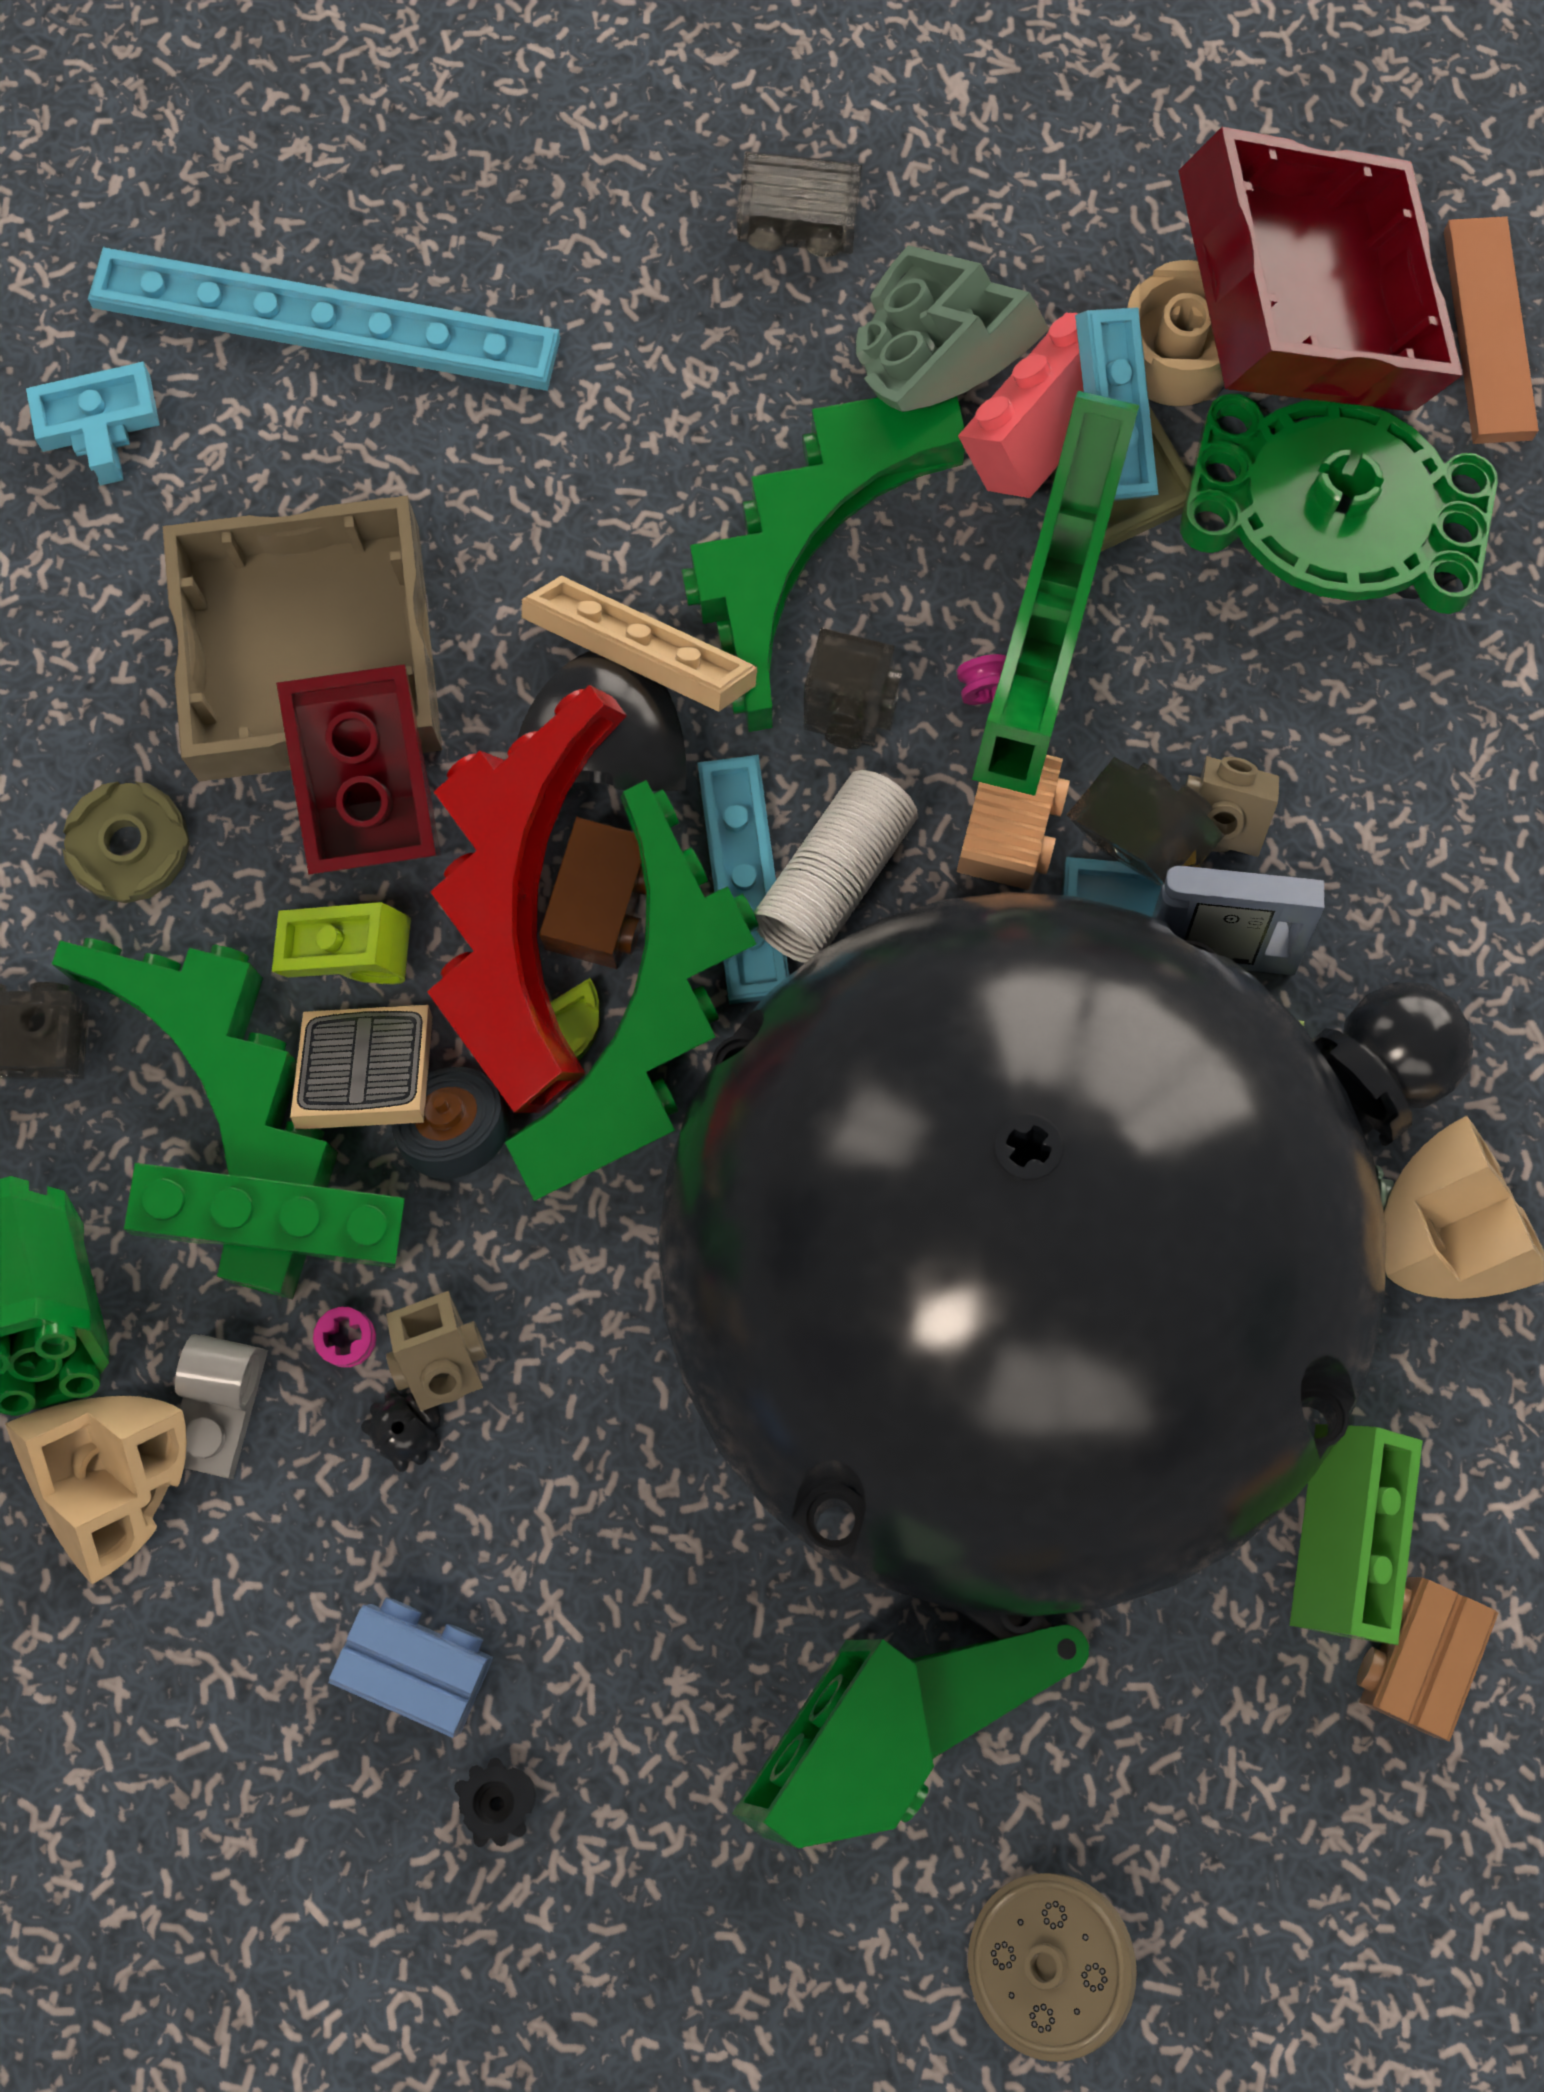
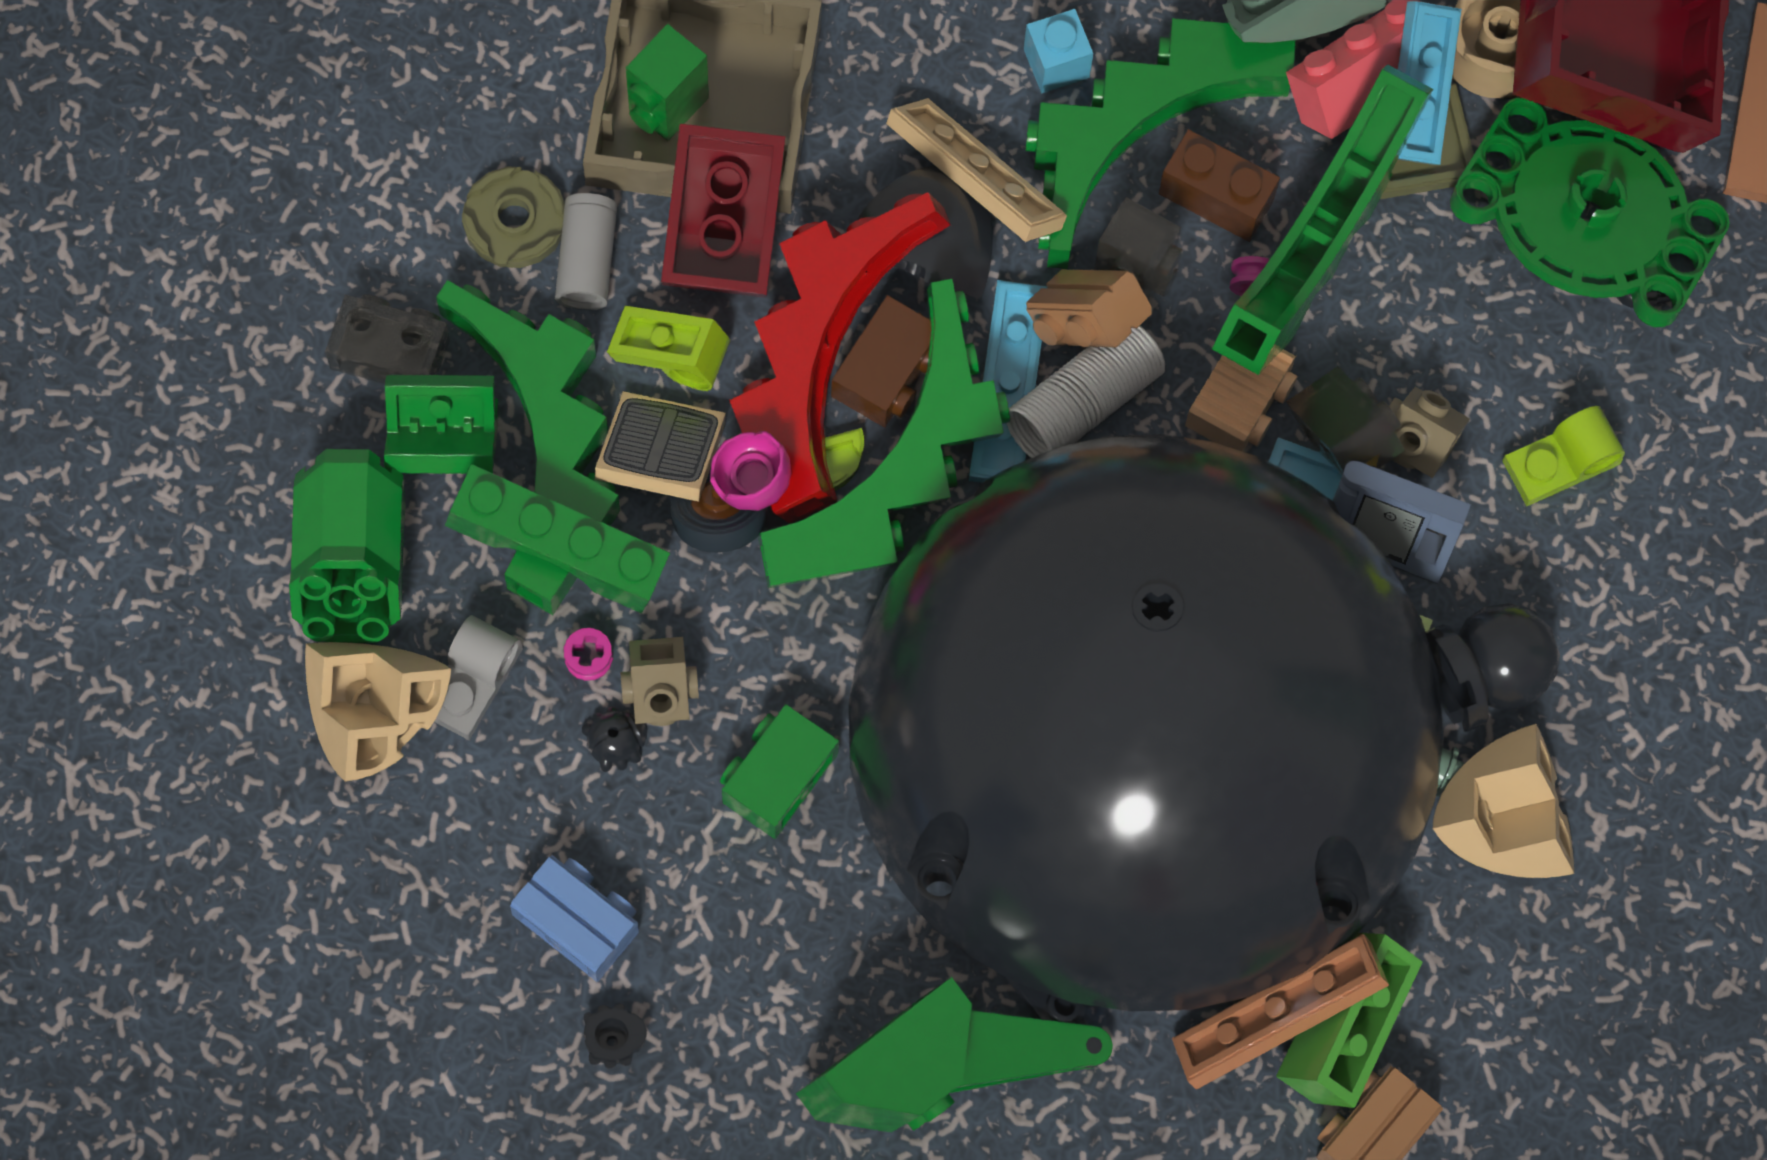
camera: 10 degrees right, 5 degrees down
(94, 1117) = (440, 423): none -> green bracket
(216, 859) = (586, 251): none -> light grey pin
(253, 637) = (666, 83): none -> green brick
(472, 1073) = (751, 471): none -> dark pink hair
(603, 1417) = (778, 770): none -> green brick
(693, 481) = (1058, 51): none -> medium azure brick
(813, 768) = (1088, 308): none -> medium nougat brick
(917, 585) = (1219, 185): none -> reddish brown brick
(1233, 1592) = (1279, 1012): none -> nougat tile
(1395, 789) = (1573, 453): none -> lime plate

